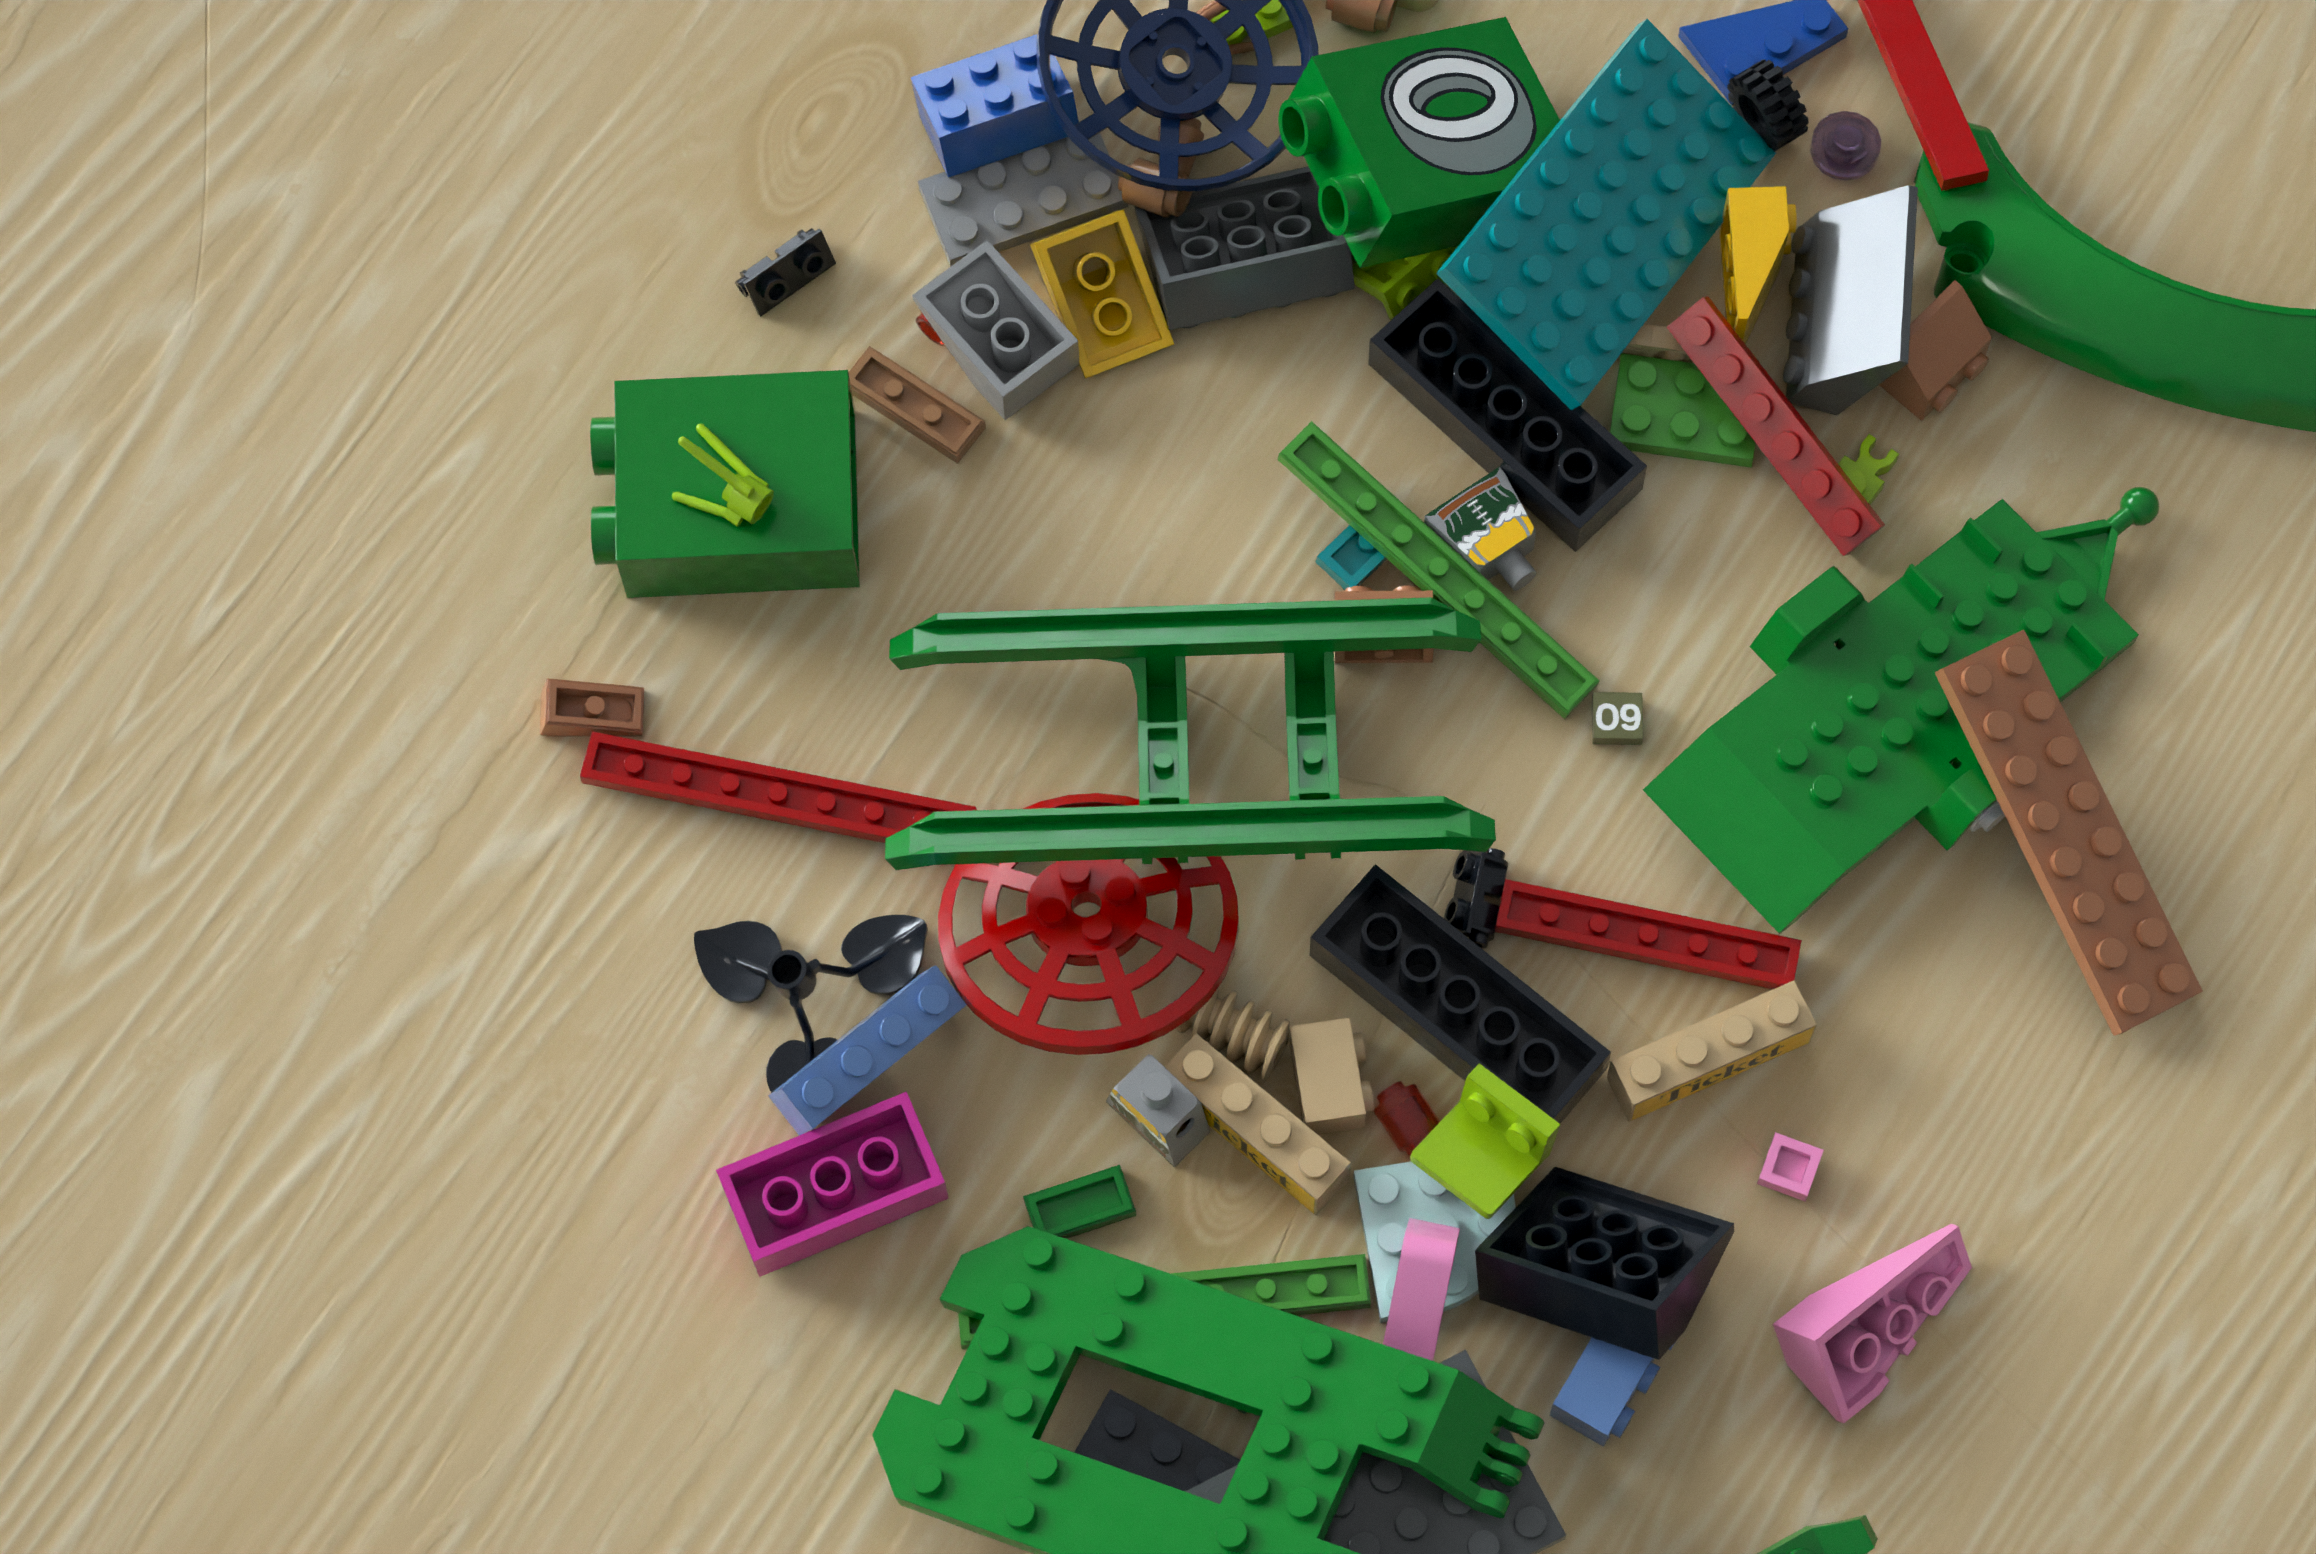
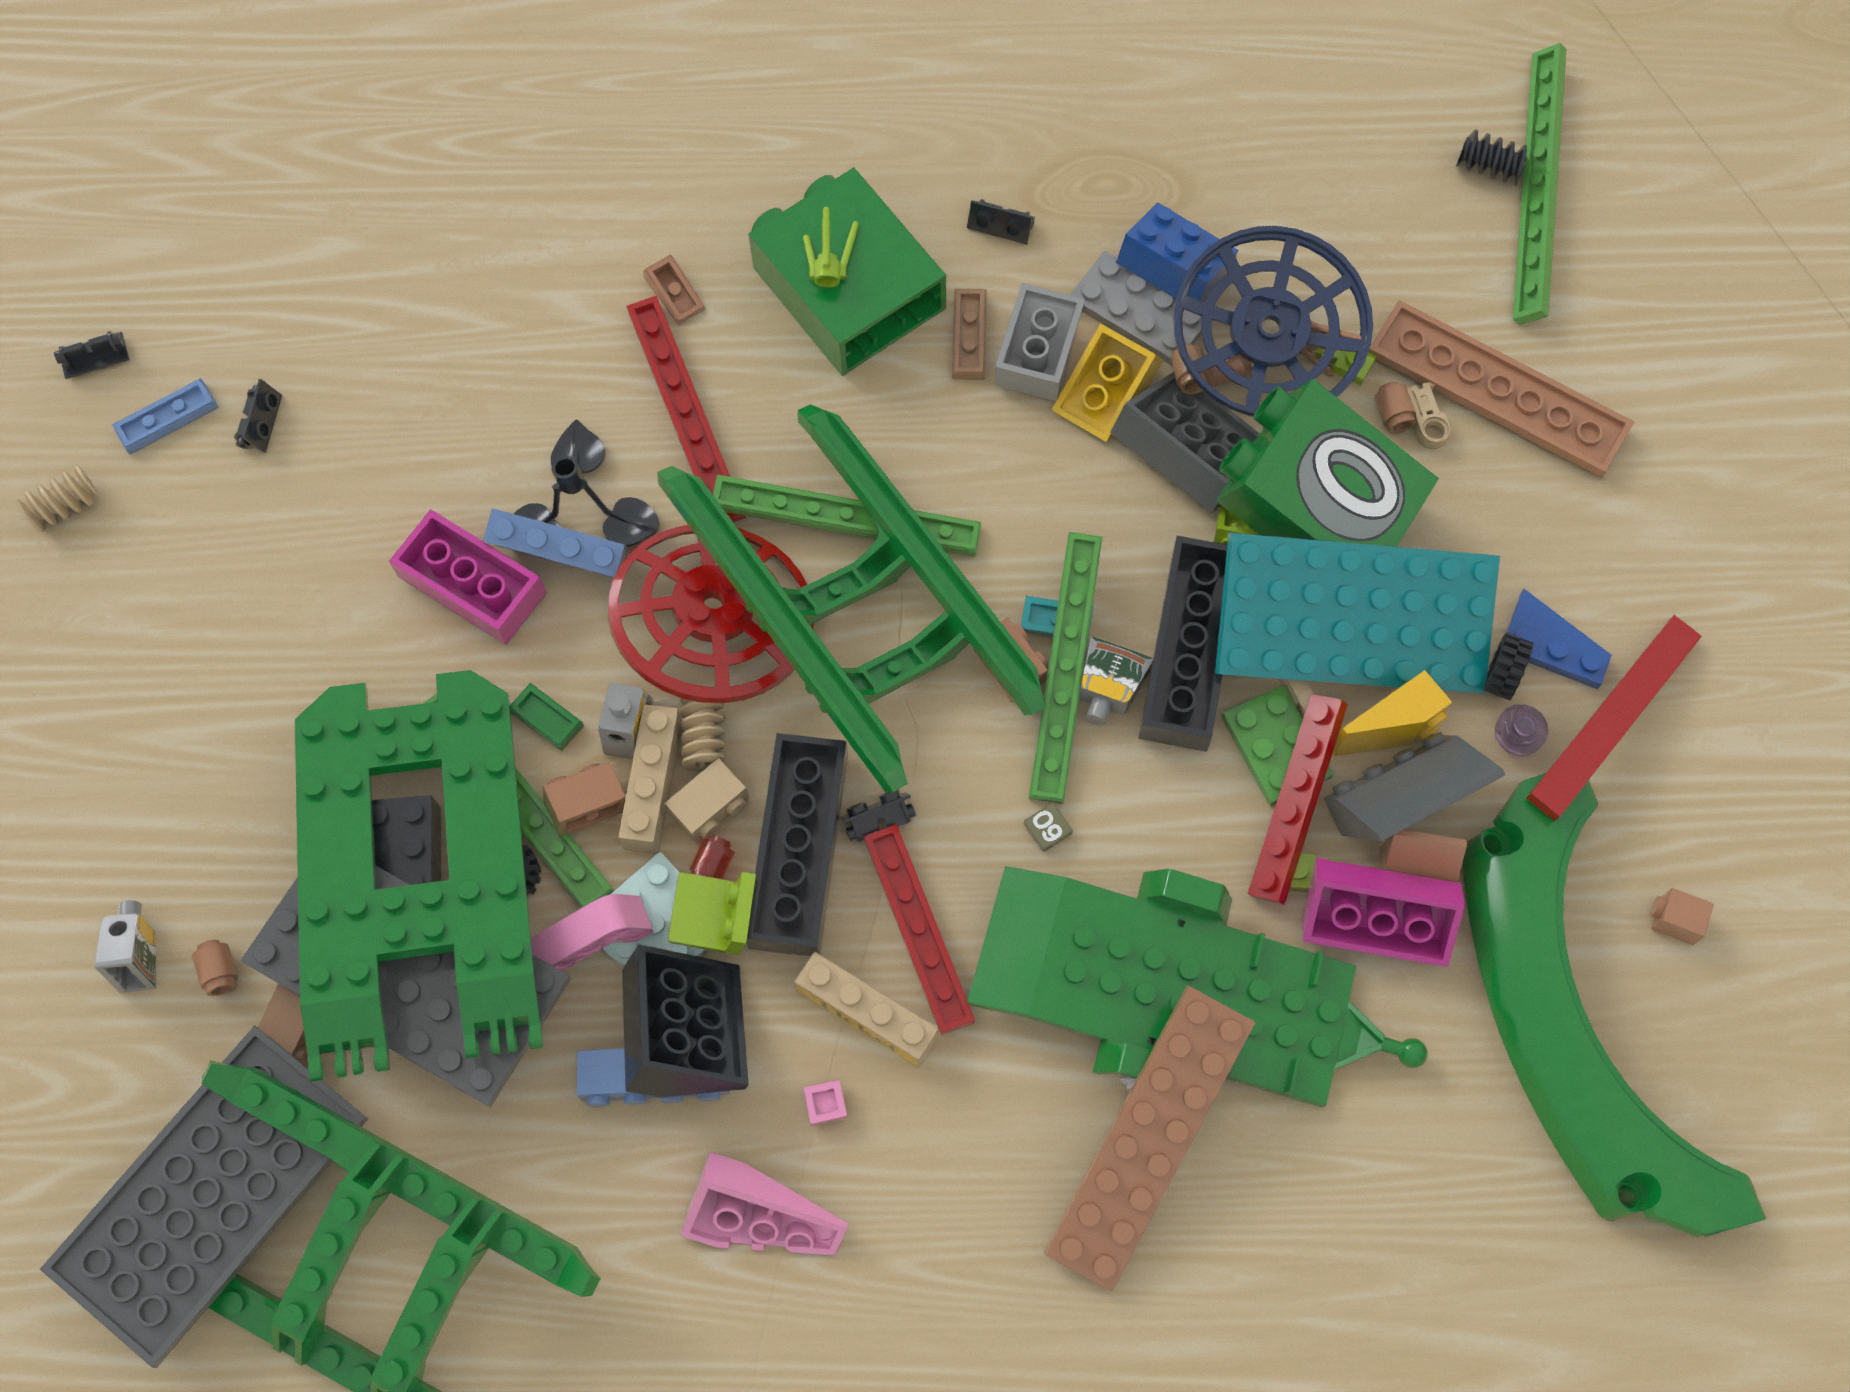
camera: 55 degrees right, 0 degrees up
(139, 1490) = (92, 355): none -> black hinge
(302, 1447) = (165, 416): none -> medium blue tile
(383, 1311) = (261, 410): none -> black hinge
(1051, 704) = (832, 512): none -> bright green tile
(1229, 1215) = (583, 798): none -> nougat brick
(1967, 427) = (1382, 912): none -> dark pink brick
(2165, 134) = (1681, 916): none -> nougat brick

